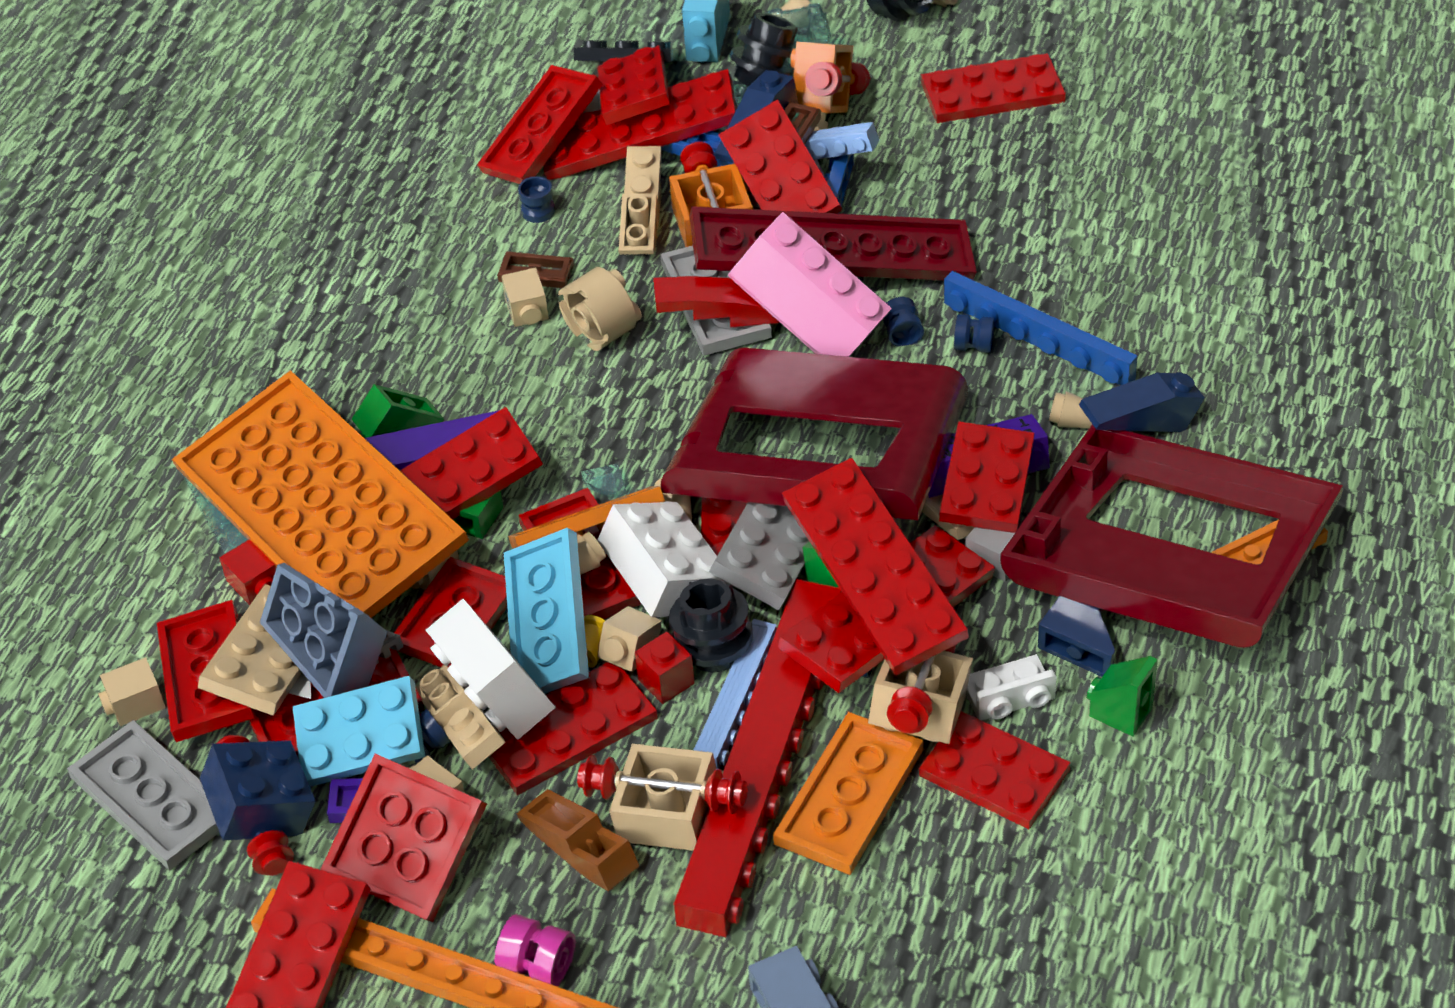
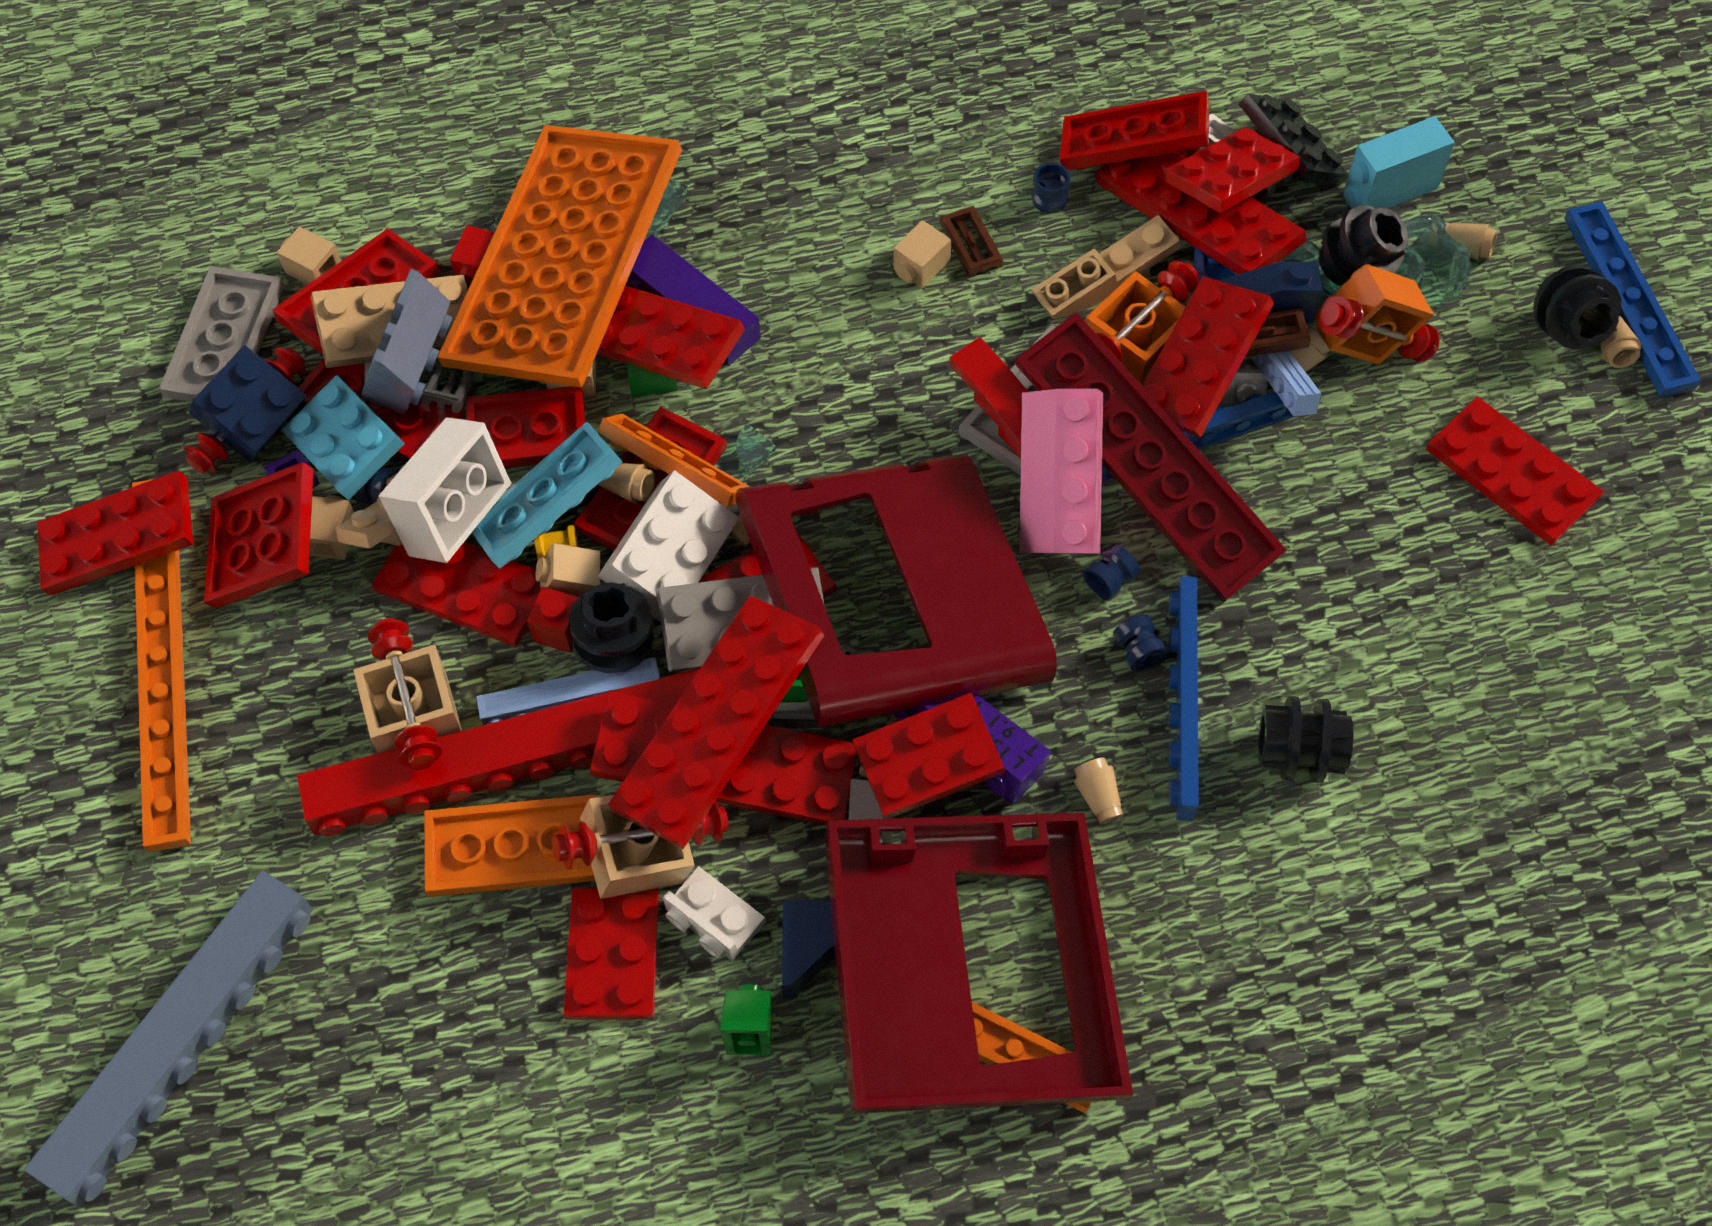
camera: 55 degrees right, 15 degrees up
(392, 410) = (715, 248): green slope -> none
(529, 948) = (207, 699): dark pink wheel -> none
(580, 839) = (333, 685): dark orange slope -> none
(599, 307) = (936, 316): tan brick -> none
(1127, 277) = (1305, 739): none -> black piece
(1148, 404) = (1131, 846): dark blue slope -> none

